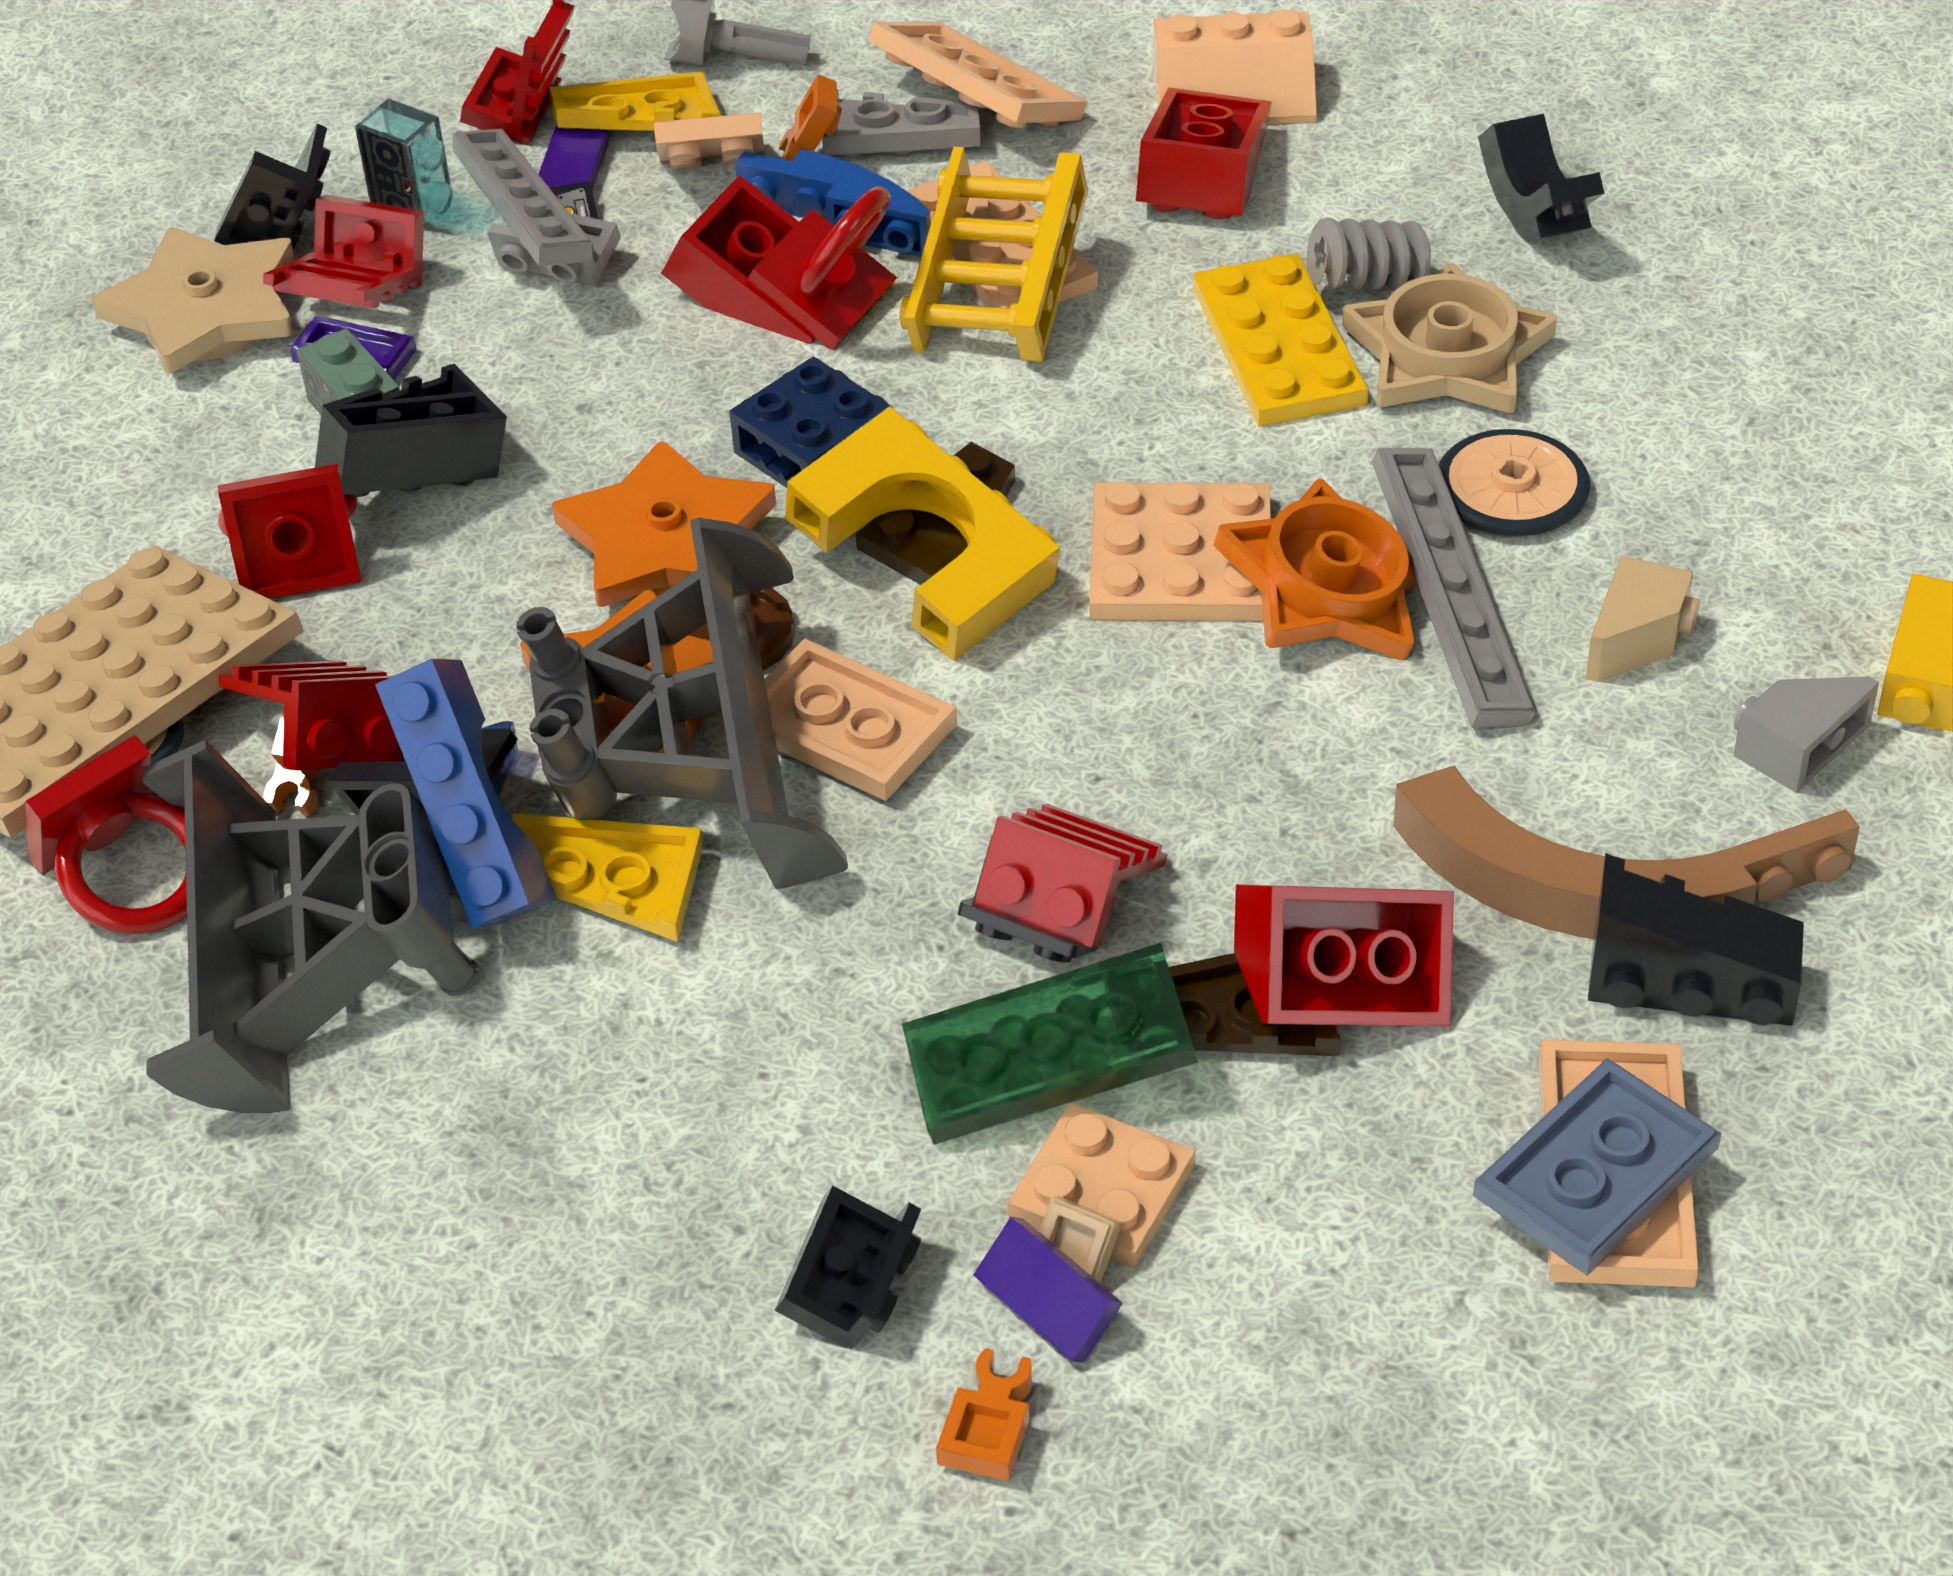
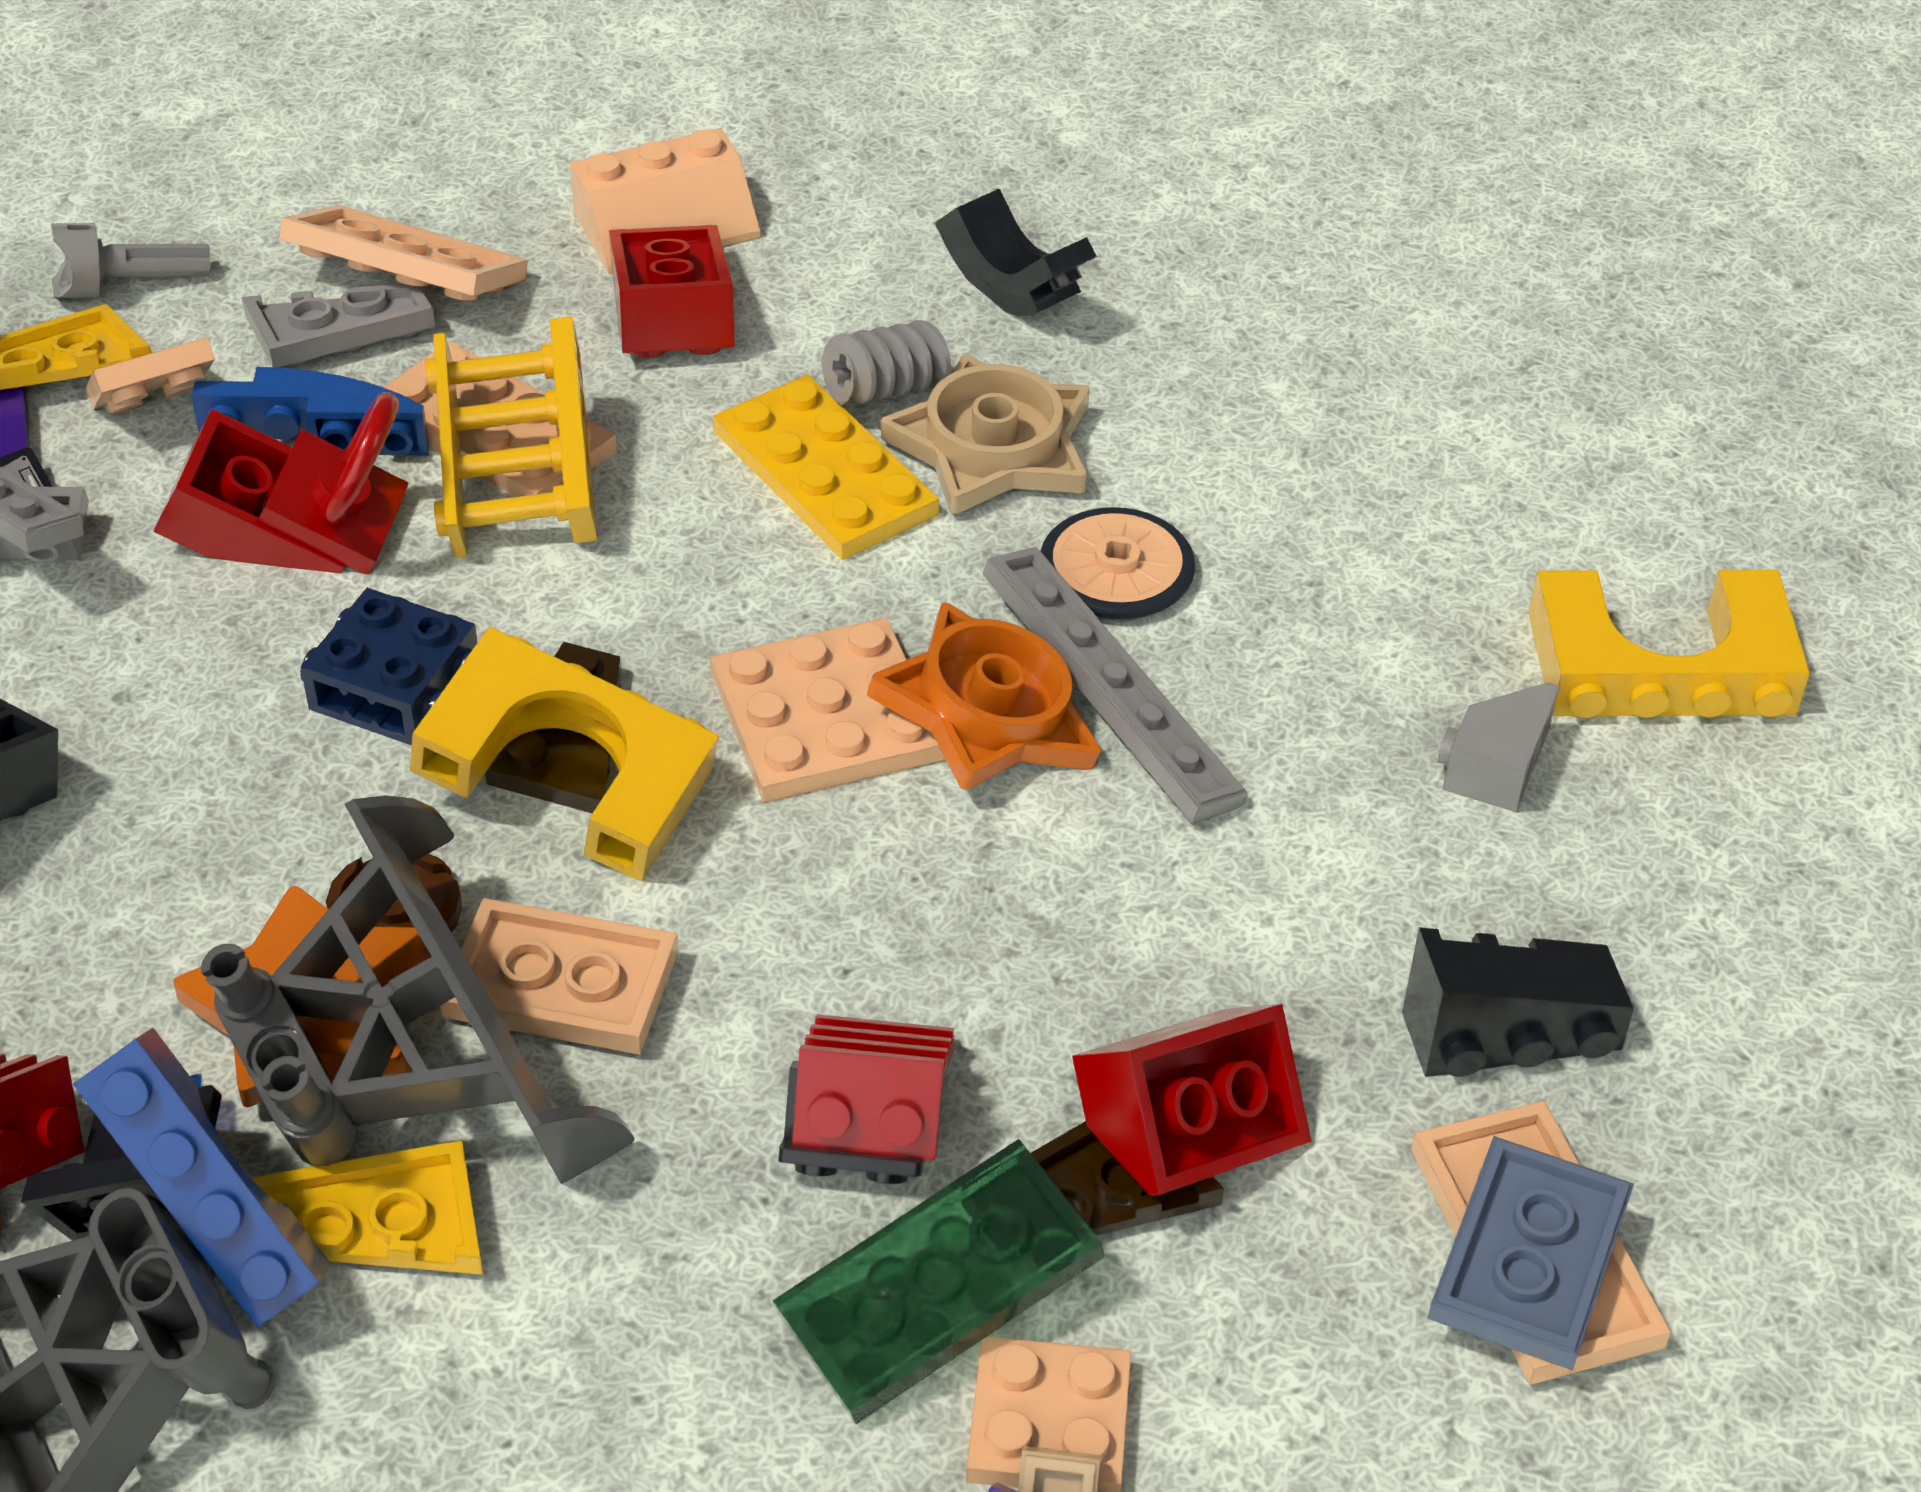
camera: 25 degrees left, 0 degrees up
(644, 524) = (273, 812): orange plate -> none
(814, 117) = (256, 333): orange plate -> none
(1561, 885) = (1355, 966): medium nougat arch -> none
(1640, 617) = (1304, 671): tan slope -> none

